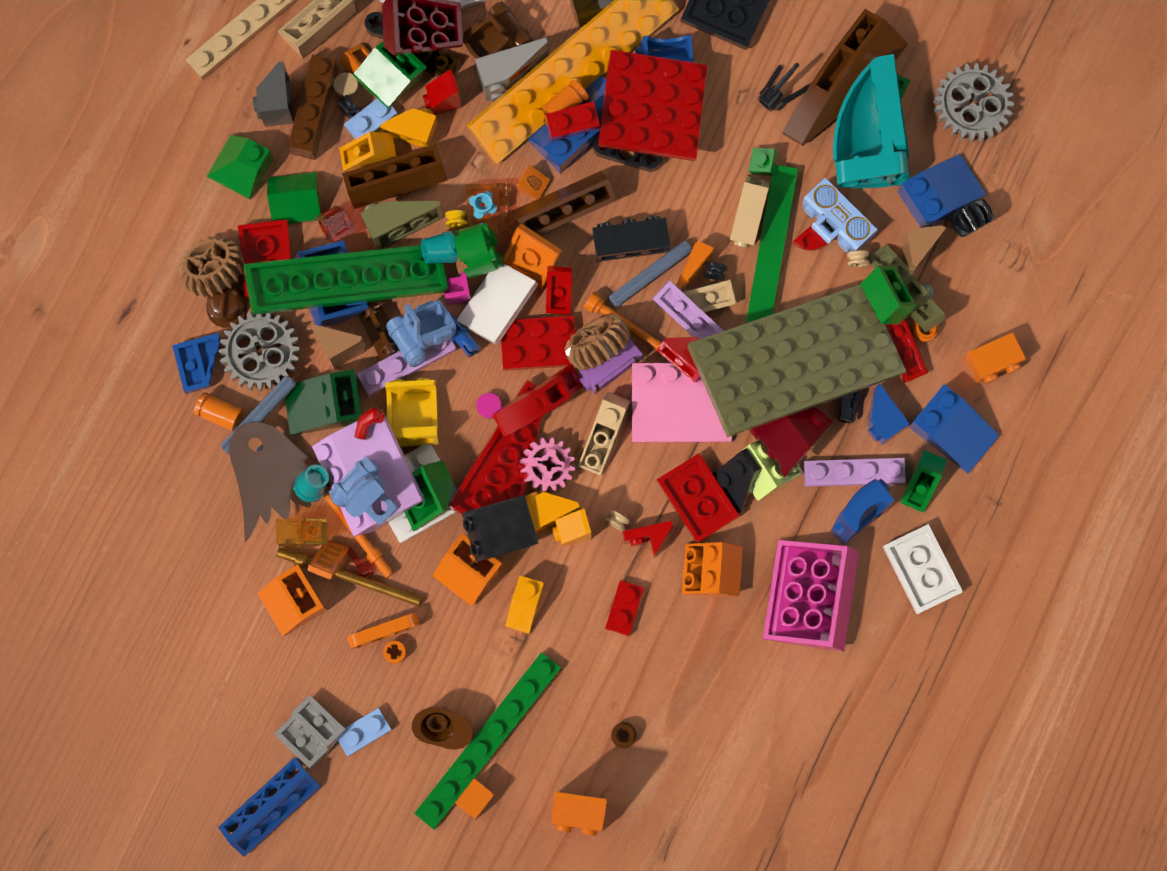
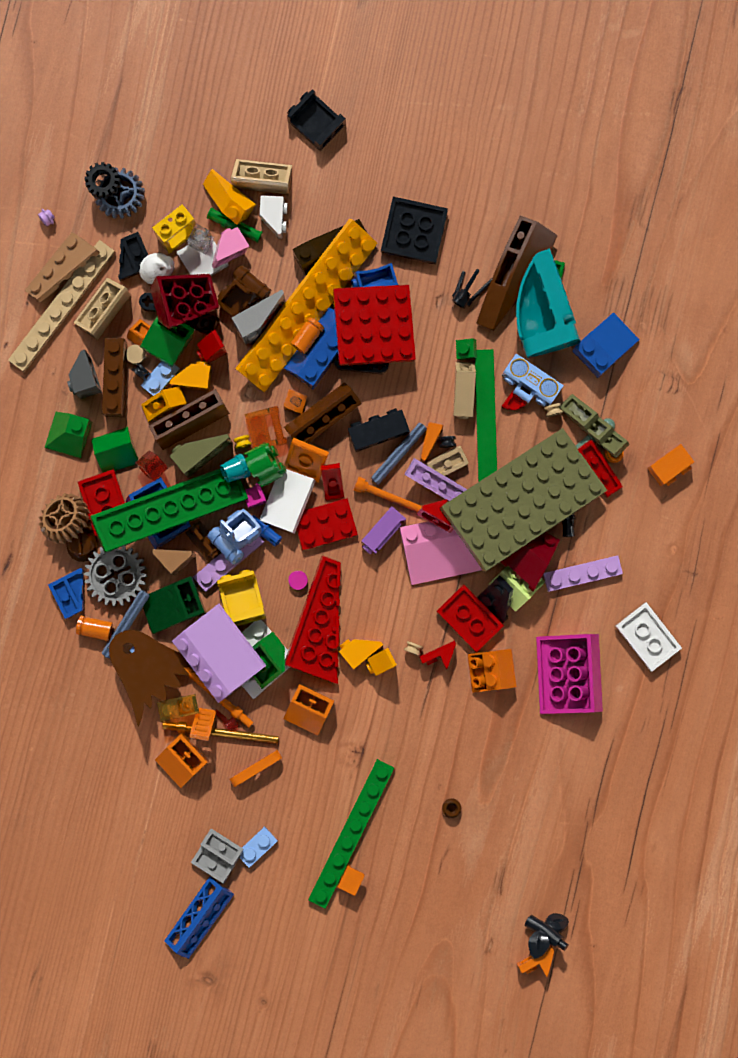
camera: 15 degrees left, 5 degrees up
(311, 483) = (177, 669): teal piece -> none
(361, 489) = (218, 670): medium blue piece -> none
(367, 419) = (209, 614): red arm -> none
(388, 657) = (263, 786): orange bush -> none
(442, 728) = (315, 832): reddish brown piece -> none
(485, 197) = (260, 432): medium azure plate -> none
(499, 528) = (327, 675): black panel -> none
(524, 604) = (357, 726): light orange slope -> none
(537, 401) = (335, 572): red slope -> none
(548, 454) = (351, 609): bright pink gear -> none
(572, 121) = (316, 351): red brick -> none
(578, 812) = (431, 873): orange slope -> none
(597, 342) = (370, 516): medium nougat gear -> none
(604, 433) = (389, 583): tan slope -> none
(624, 608) = (432, 712): red plate -> none
(862, 509) = (595, 606): blue piece -> none
(884, 417) = (597, 527): blue slope -> none
(888, 295) = (582, 435): green brick -> none
(918, 244) = (596, 392): medium nougat slope -> none
(924, 481) = (636, 569): green slope -> none
(954, 429) = (651, 525): blue slope -> none
(972, 218) = (633, 361): black gear -> none
(984, 121) = (627, 283): light grey gear -> none

